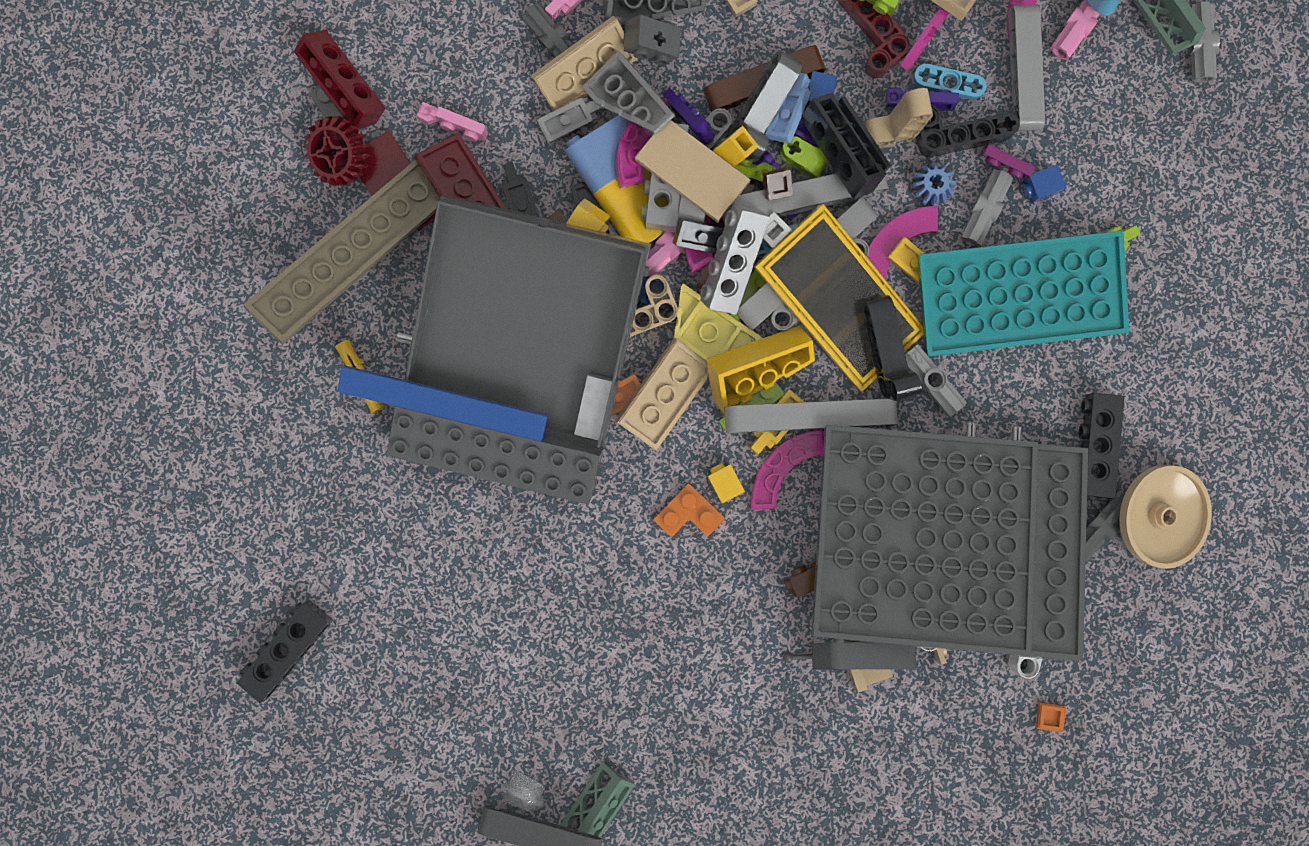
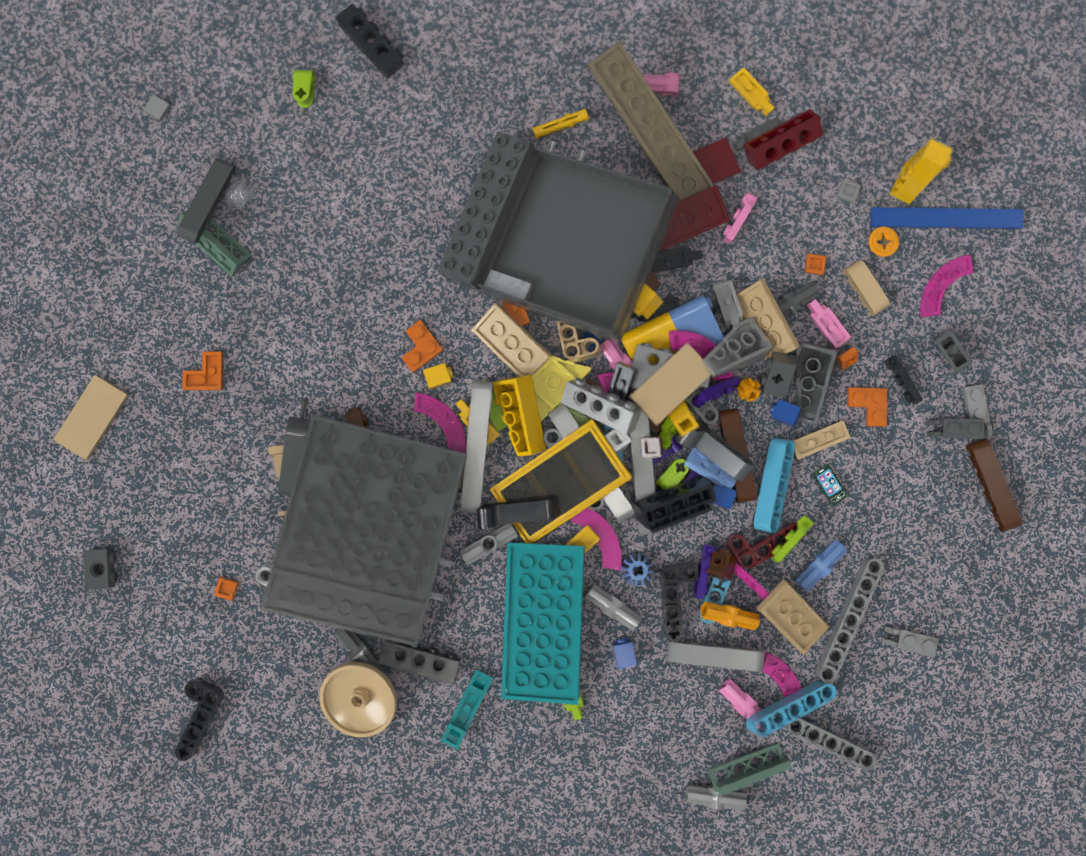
camera: 95 degrees right, 0 degrees up
(279, 131) = (751, 91): none -> yellow hinge
(286, 245) = (666, 84): none -> bright pink piece
(334, 134) = (729, 129): dark red gear -> none
(358, 731) = (303, 87): none -> lime piece
(442, 403) = (527, 175): blue tile -> none
(497, 17) = (815, 264): none -> orange tile
(677, 76) = (748, 389): none -> light orange gear
(700, 25) = (785, 413): none -> blue brick
(777, 789) = (210, 377): none -> orange plate
(795, 26) = (774, 485): none -> medium azure beam
(905, 120) = (686, 552): tan beam -> none
(915, 68) = (722, 565): none -> reddish brown brick
(973, 57) = (729, 615): none -> light orange piece
(998, 157) = (650, 620): magenta plate -> none
(1151, 375) = (466, 709): none -> teal slope
(1231, 722) = (197, 721): none -> black beam

